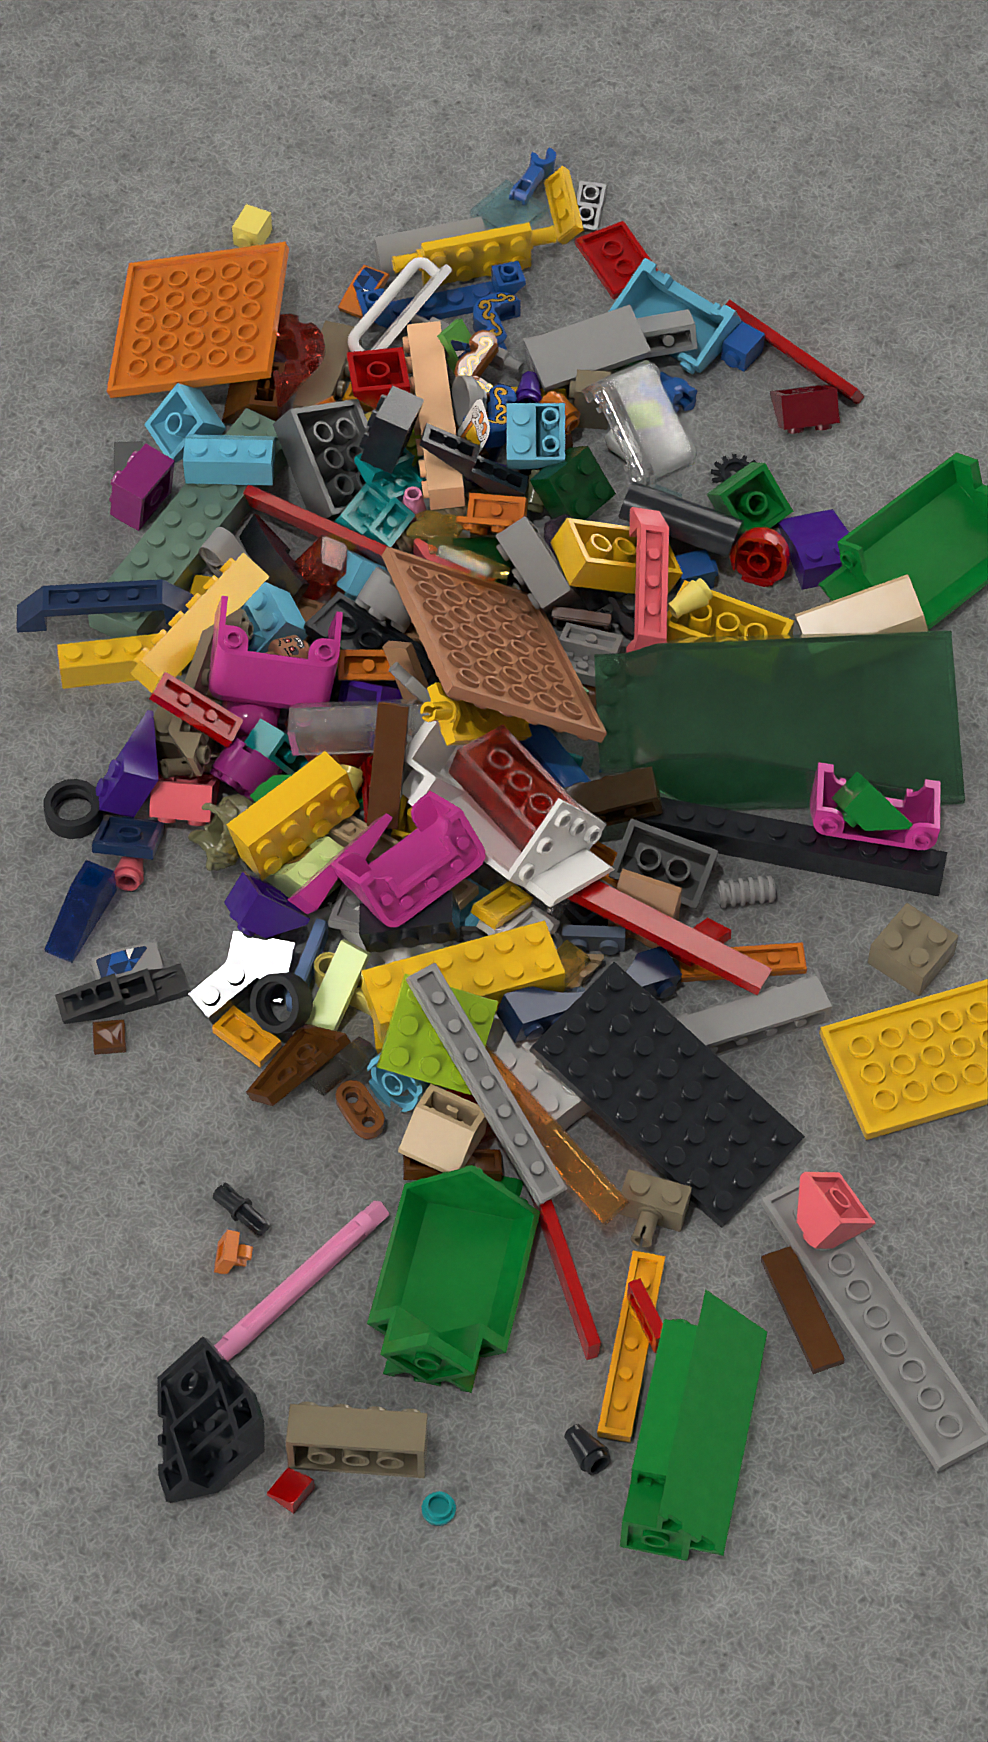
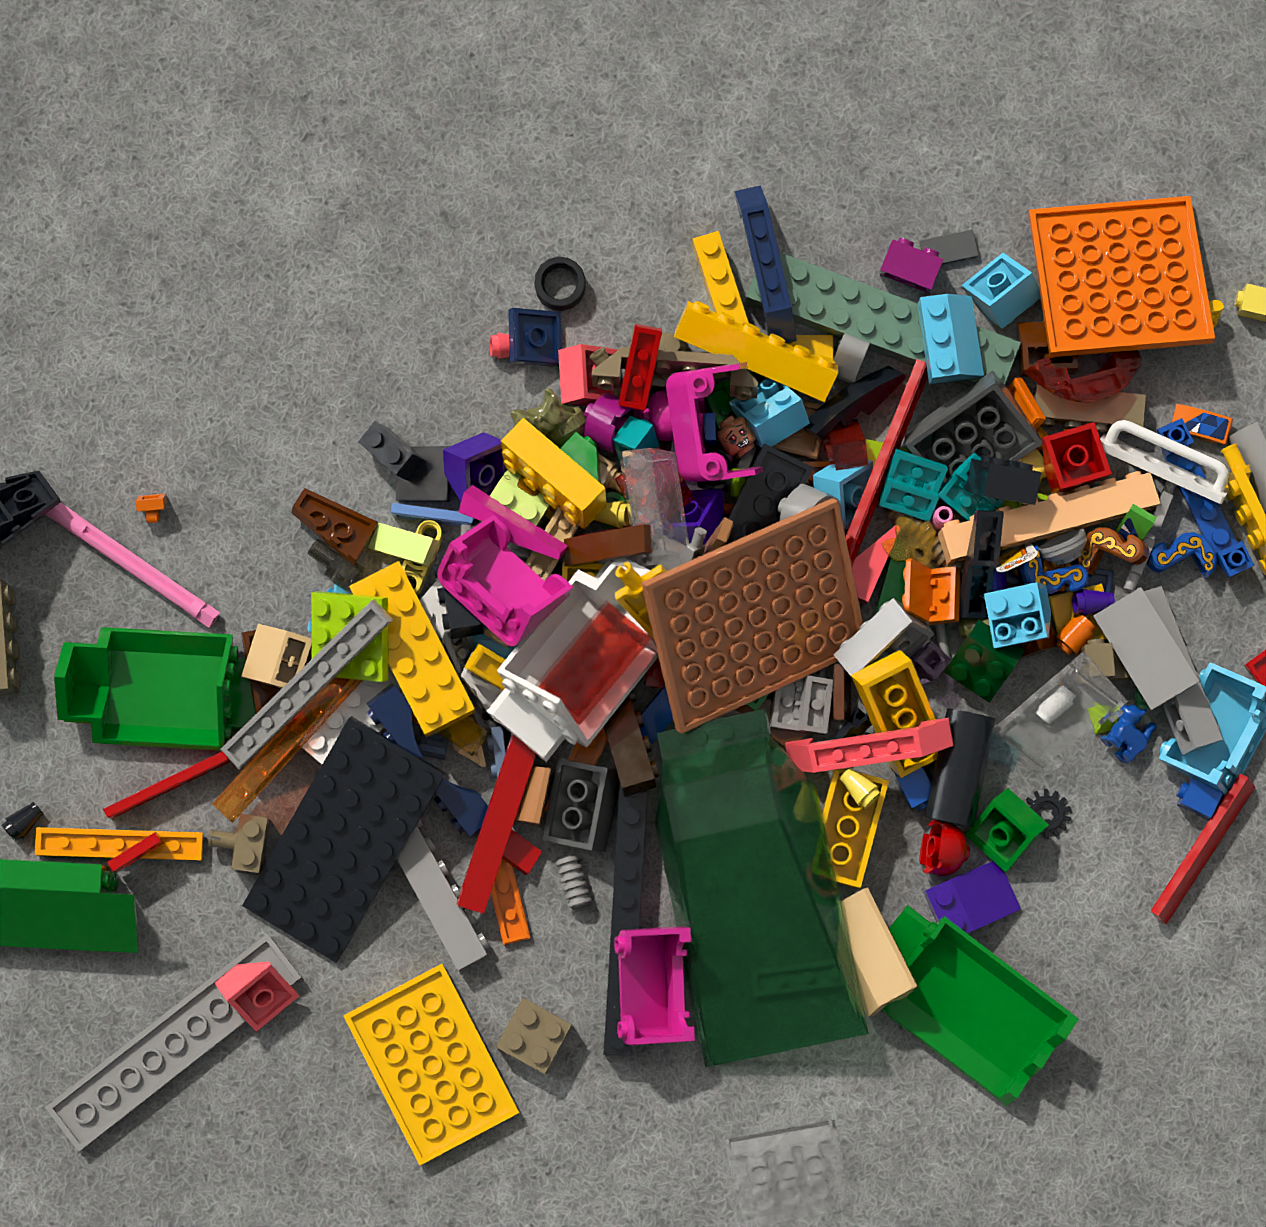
camera: 80 degrees right, 25 degrees up
(81, 910) = (453, 313): clear blue slope -> none
(109, 1037) = (341, 364): reddish brown tile -> none
(116, 996) = (382, 367): black slope -> none
(128, 961) = (411, 364): slope -> none
(132, 772) = (592, 323): dark purple slope -> none
(241, 1209) = (194, 506): black axle -> none
(246, 1036) = (357, 478): light orange plate -> none
(261, 1006) = (374, 494): black tyre -> none
(361, 1111) = (300, 583): dark orange plate -> none
(363, 665) = (733, 503): orange slope -> none
(480, 566) = (866, 582): clear yellow plate -> none
(802, 1310) = (175, 980): reddish brown tile -> none
(806, 408) = (1136, 867): dark red slope -> none
(867, 806) = (651, 980): green slope -> none

